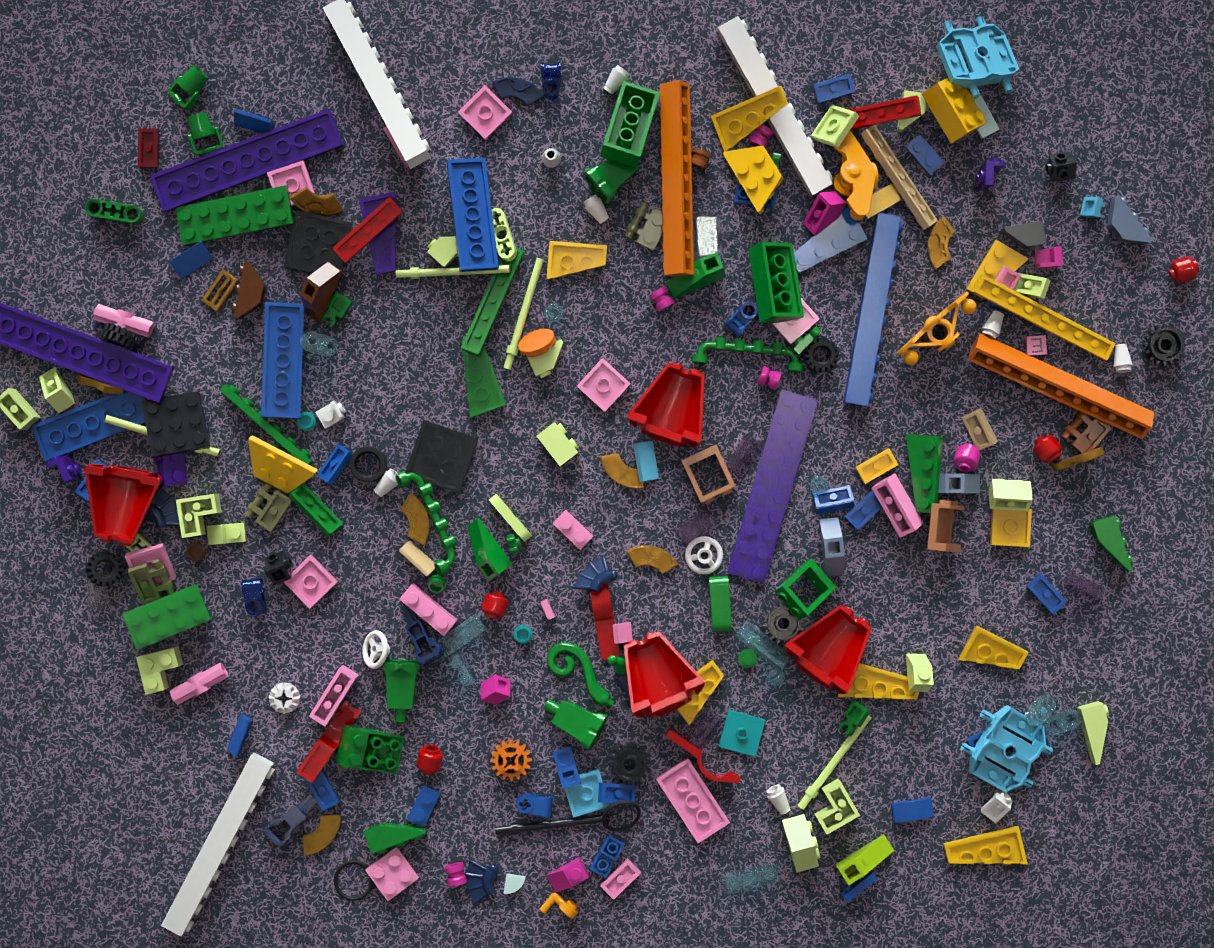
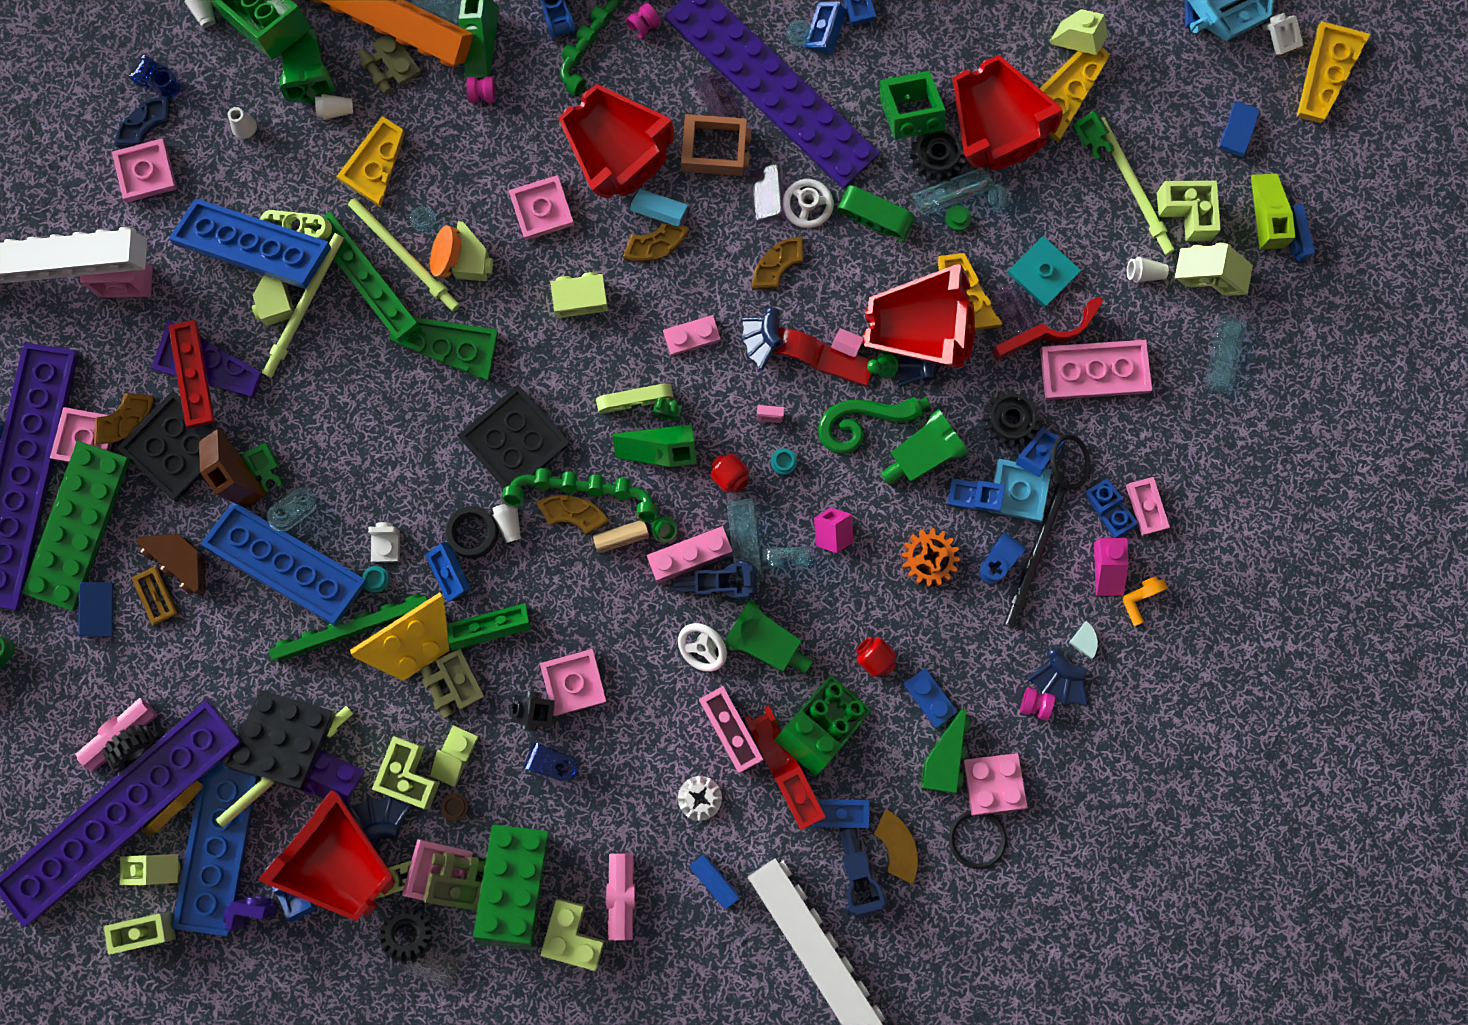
camera: 60 degrees left, 10 degrees down
(832, 546) = (879, 52): sand blue slope -> none

